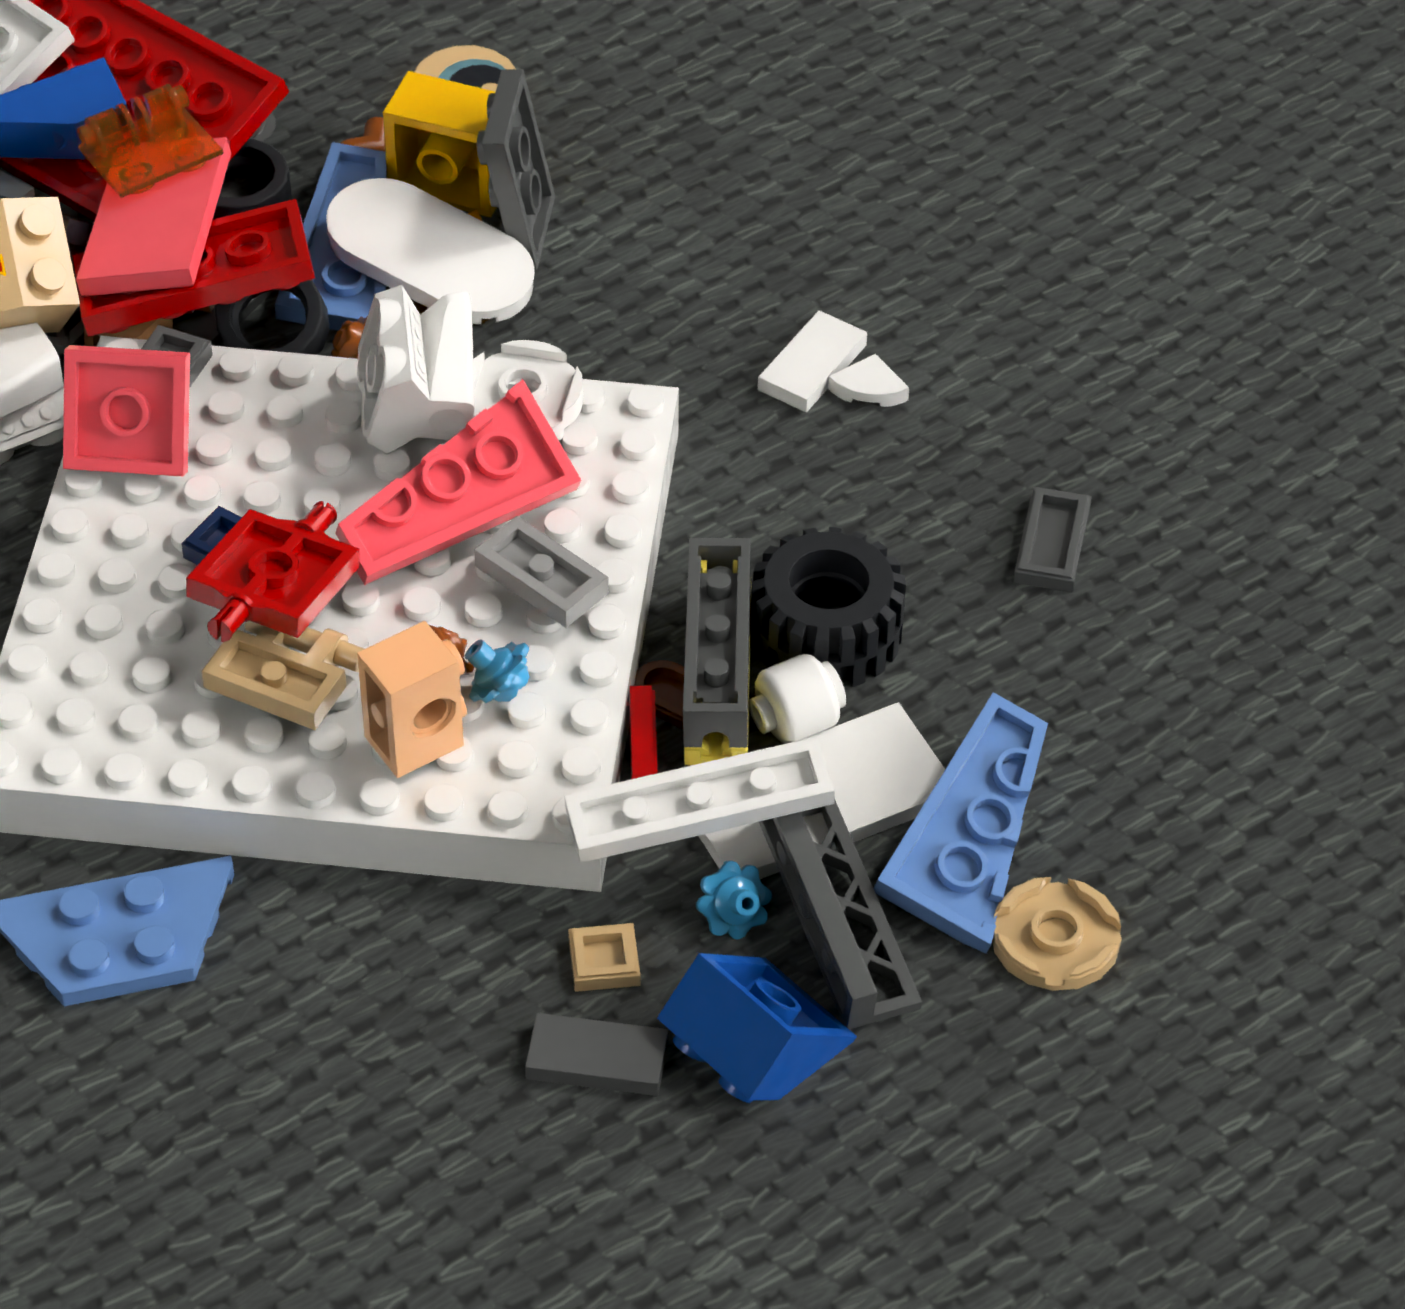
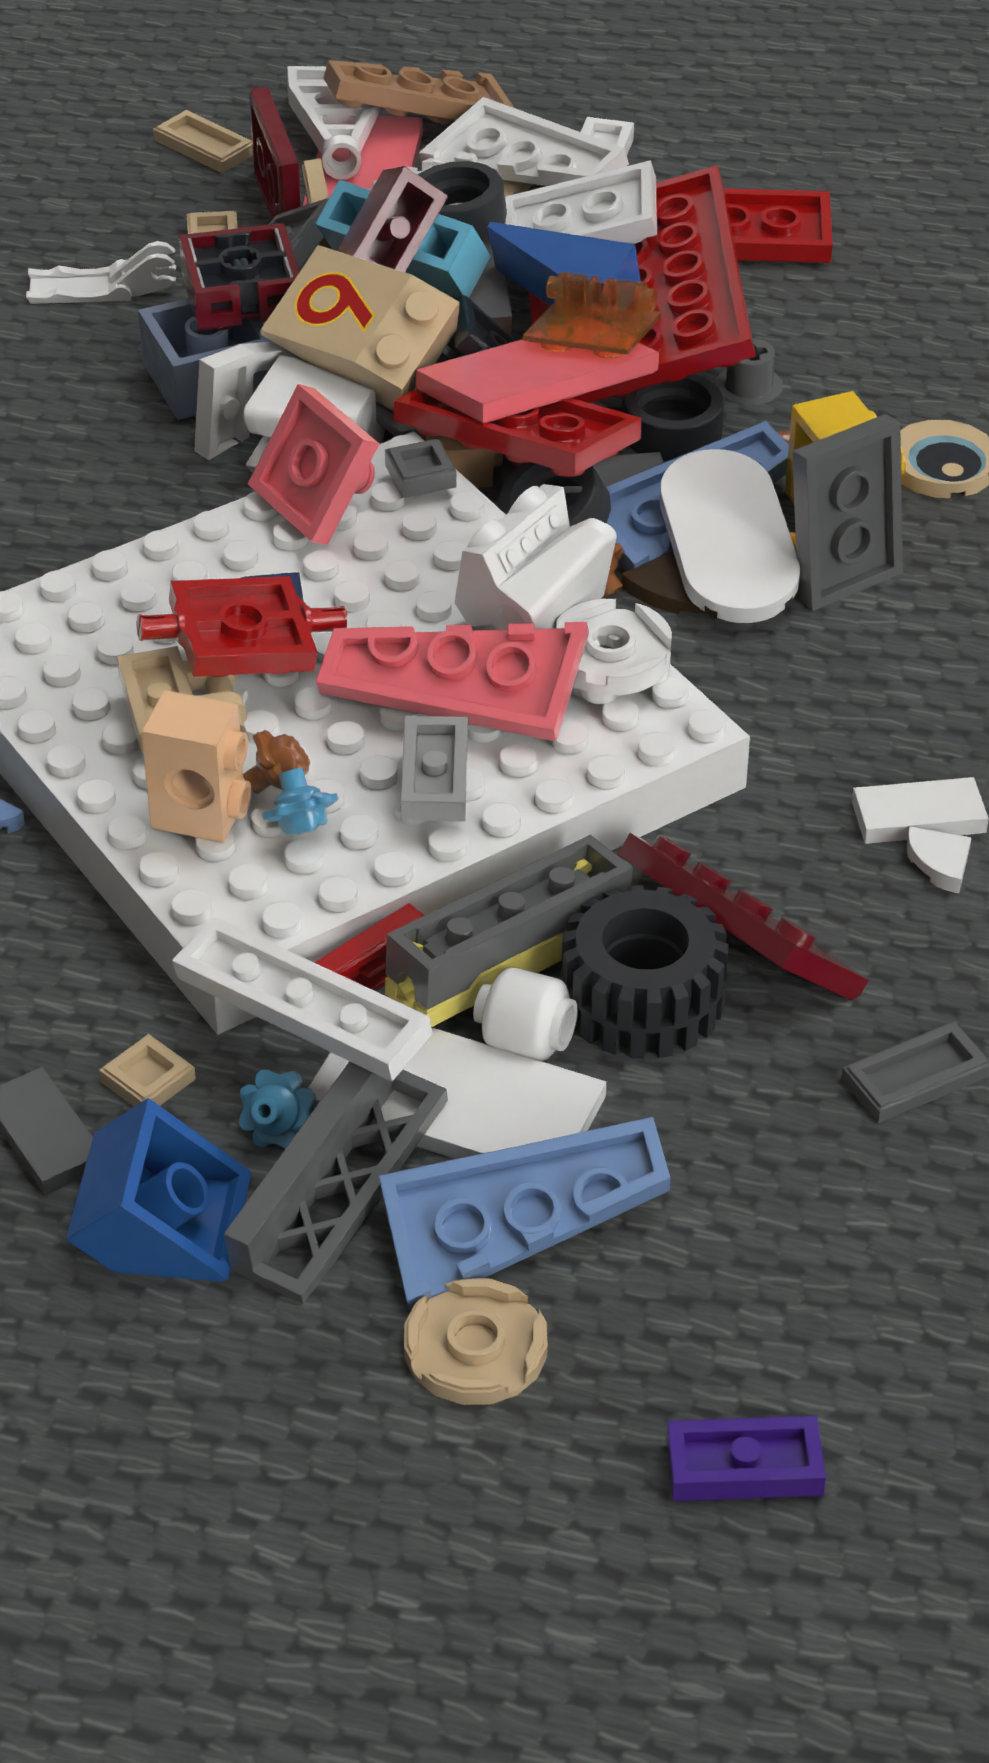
camera: 50 degrees right, 5 degrees down
(789, 517) = (742, 914): none -> dark red wing
(1302, 857) = (745, 1458): none -> dark purple plate

